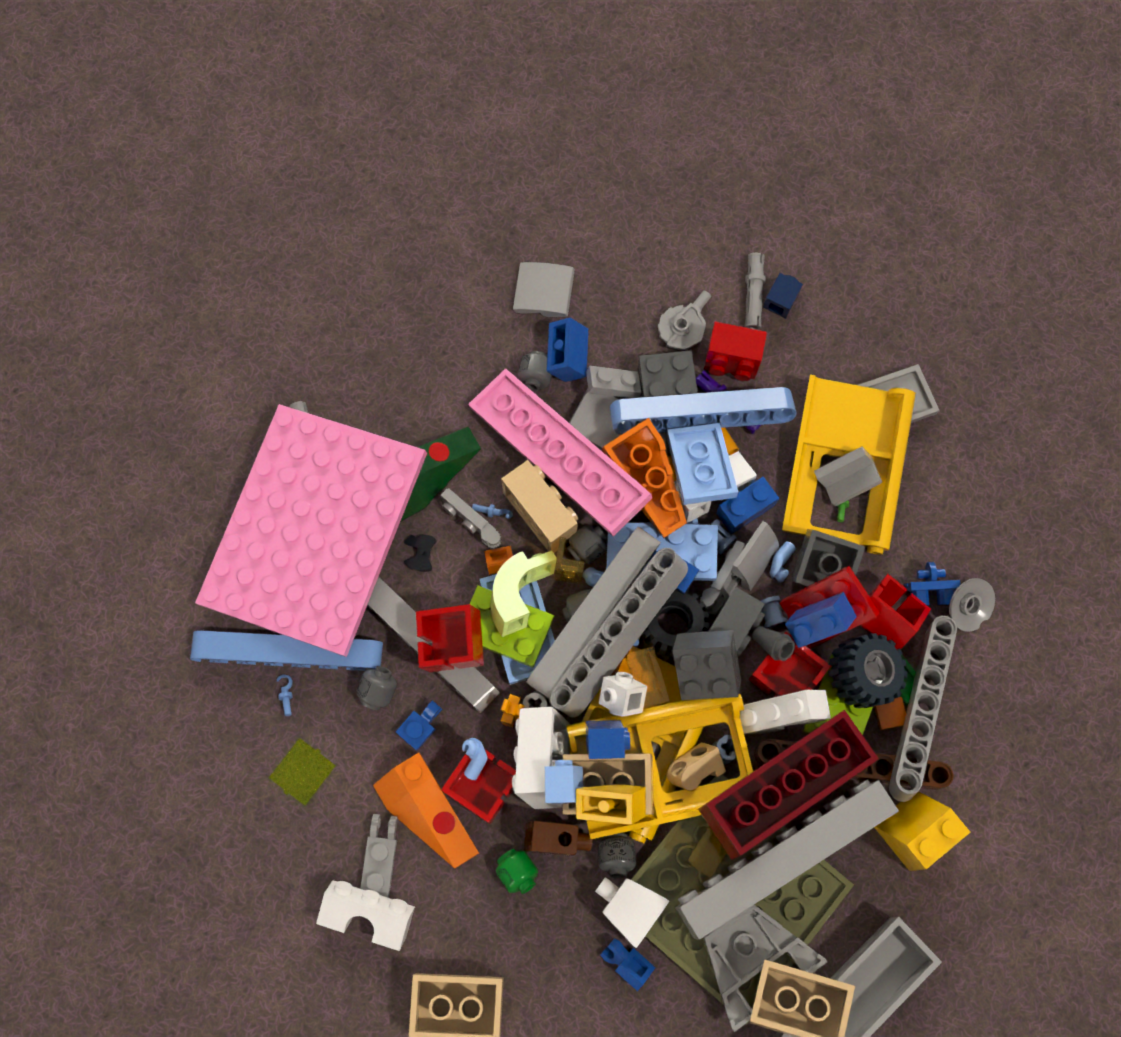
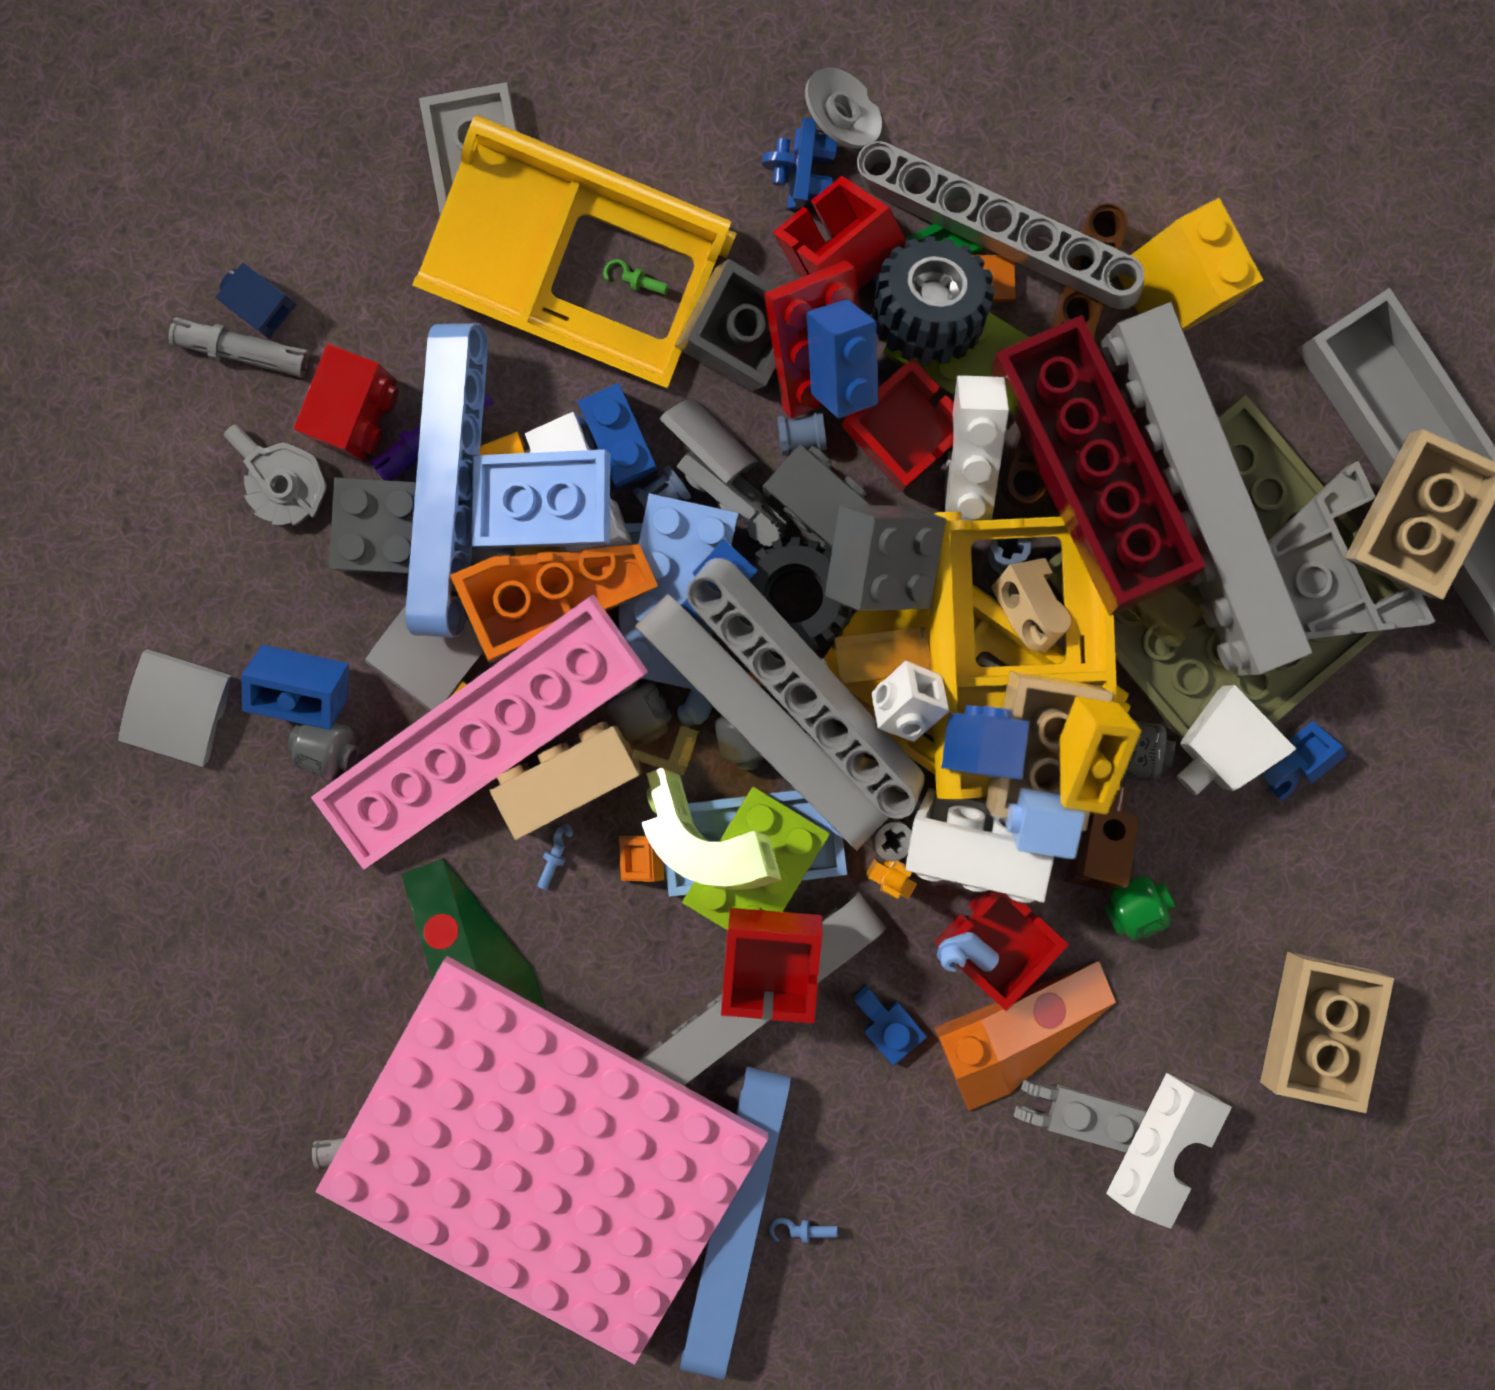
camera: 80 degrees left, 15 degrees up
(302, 771) = (928, 1218): clear neon green piece -> none
(376, 688) = (820, 1087): dark grey head -> none
(421, 560) = (593, 977): black piece -> none
(472, 520) = (567, 893): light grey hinge -> none
(613, 382) = (366, 619): light grey plate -> none
(776, 644) = (866, 440): dark grey cone -> none
(779, 559) = (716, 403): light blue arm -> none
(849, 476) = (598, 258): light grey panel -> none

